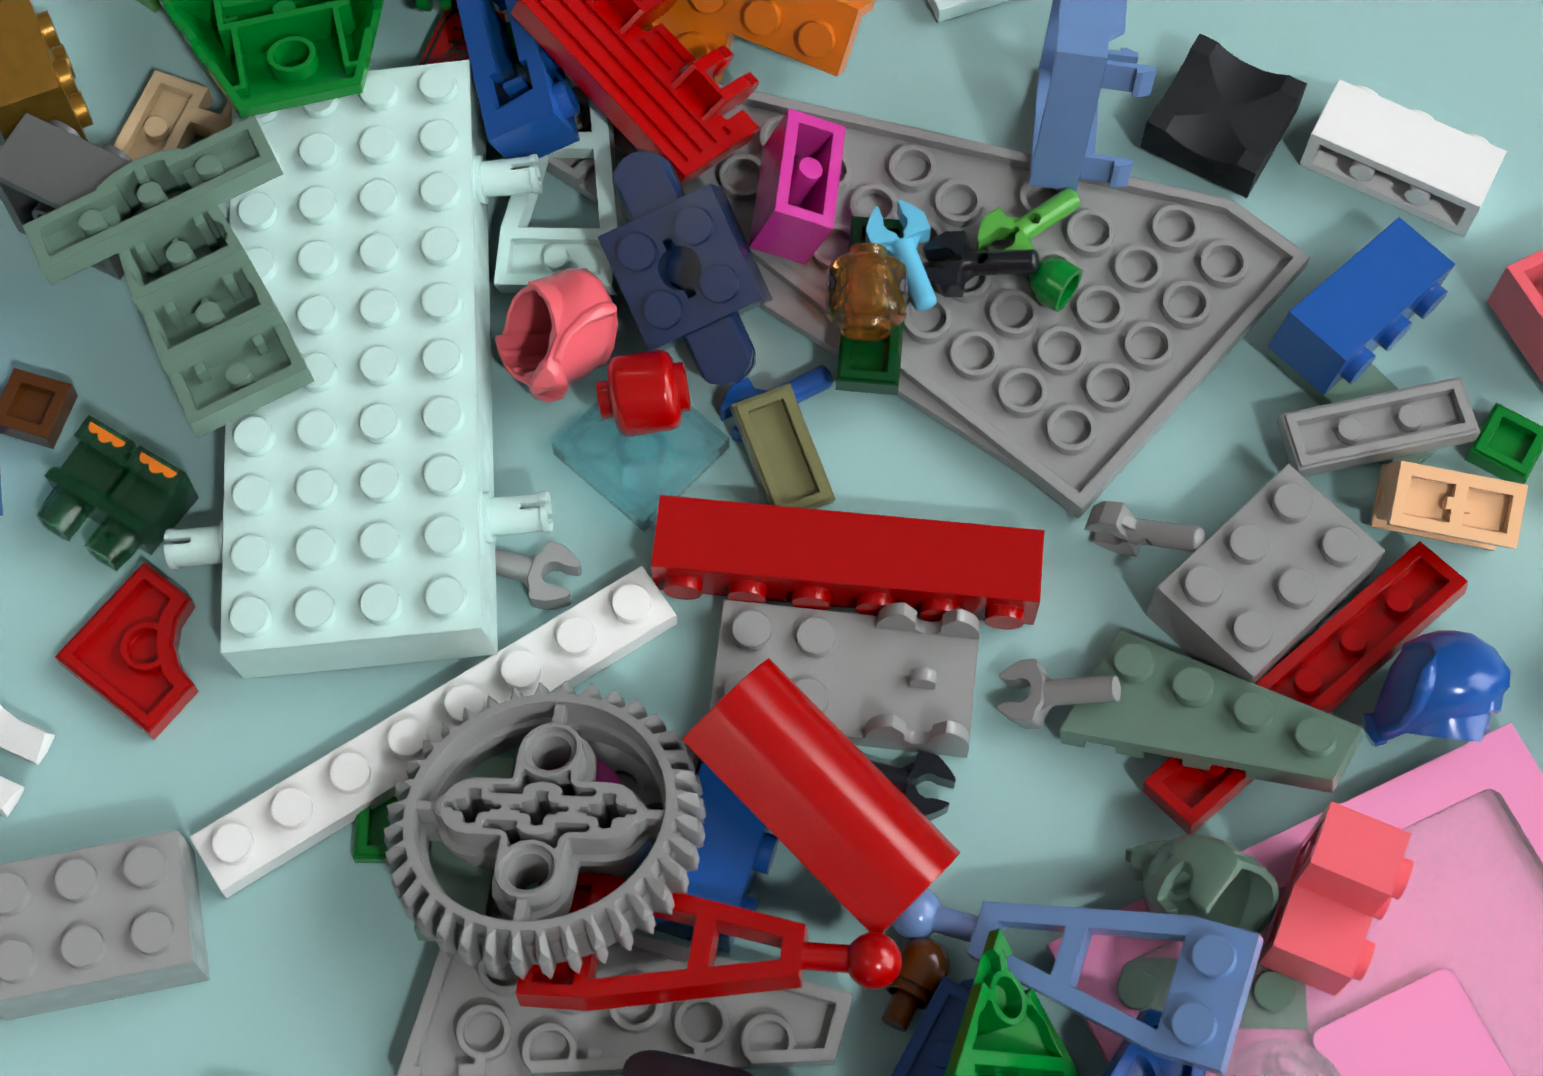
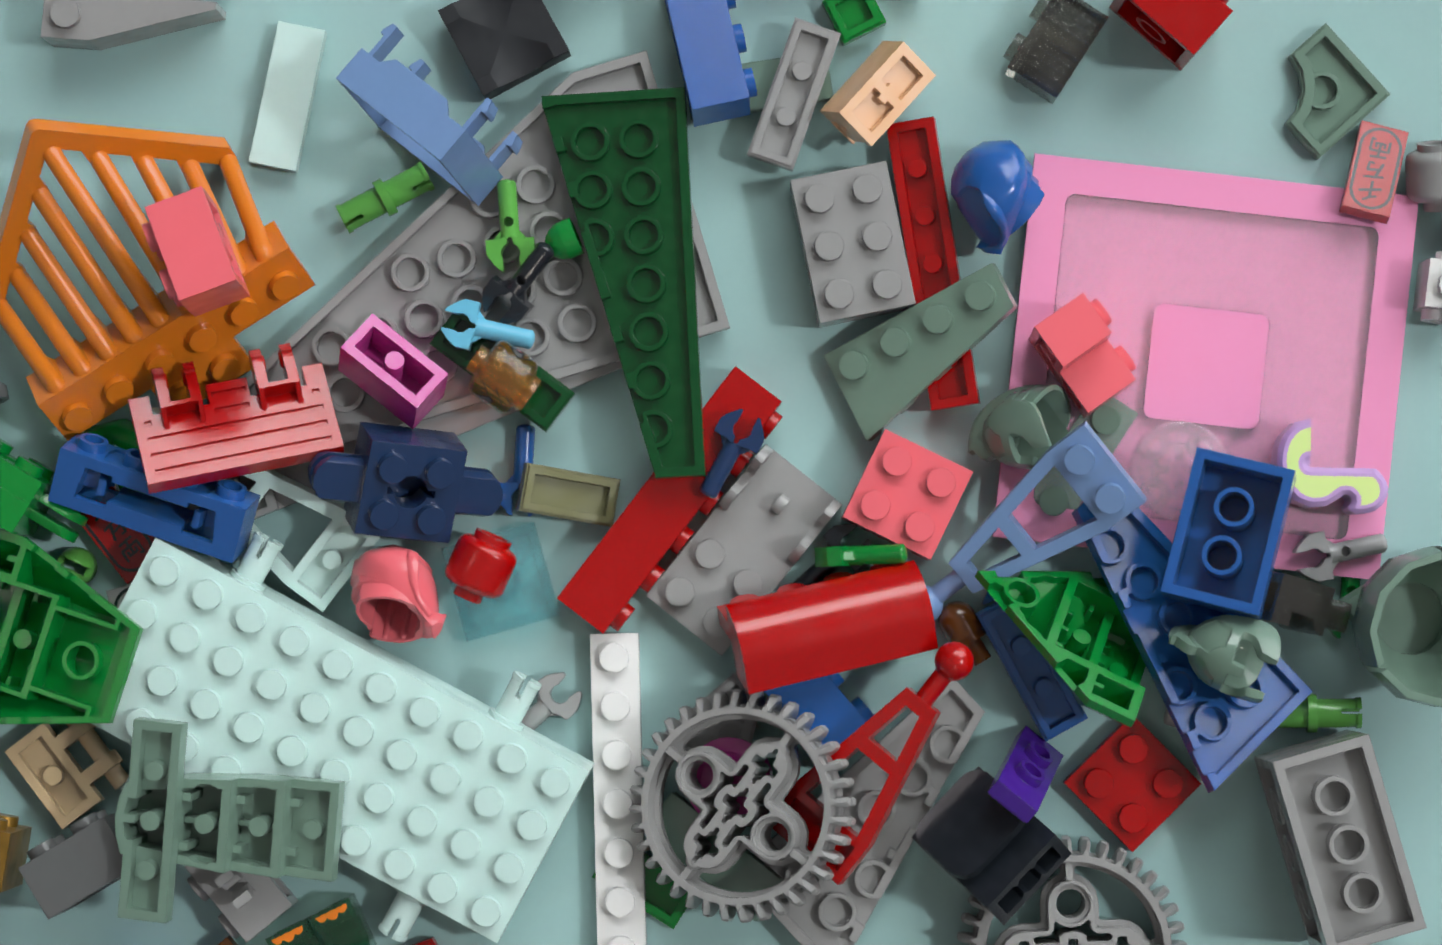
camera: 50 degrees left, 20 degrees up
(126, 381) = (245, 899): none -> light grey brick
(408, 38) = (83, 557): none -> bright green hinge
(908, 773) = (860, 555): none -> green bar
(950, 575) = (730, 452): none -> dark blue bar
(972, 105) = (385, 197): none -> bright green pin
(1029, 811) = (907, 494): none -> coral brick
(1051, 692) = (838, 430): light grey bar -> none
(1123, 533) = (767, 303): light grey bar -> none
(1135, 331) = (634, 211): none -> dark green wing

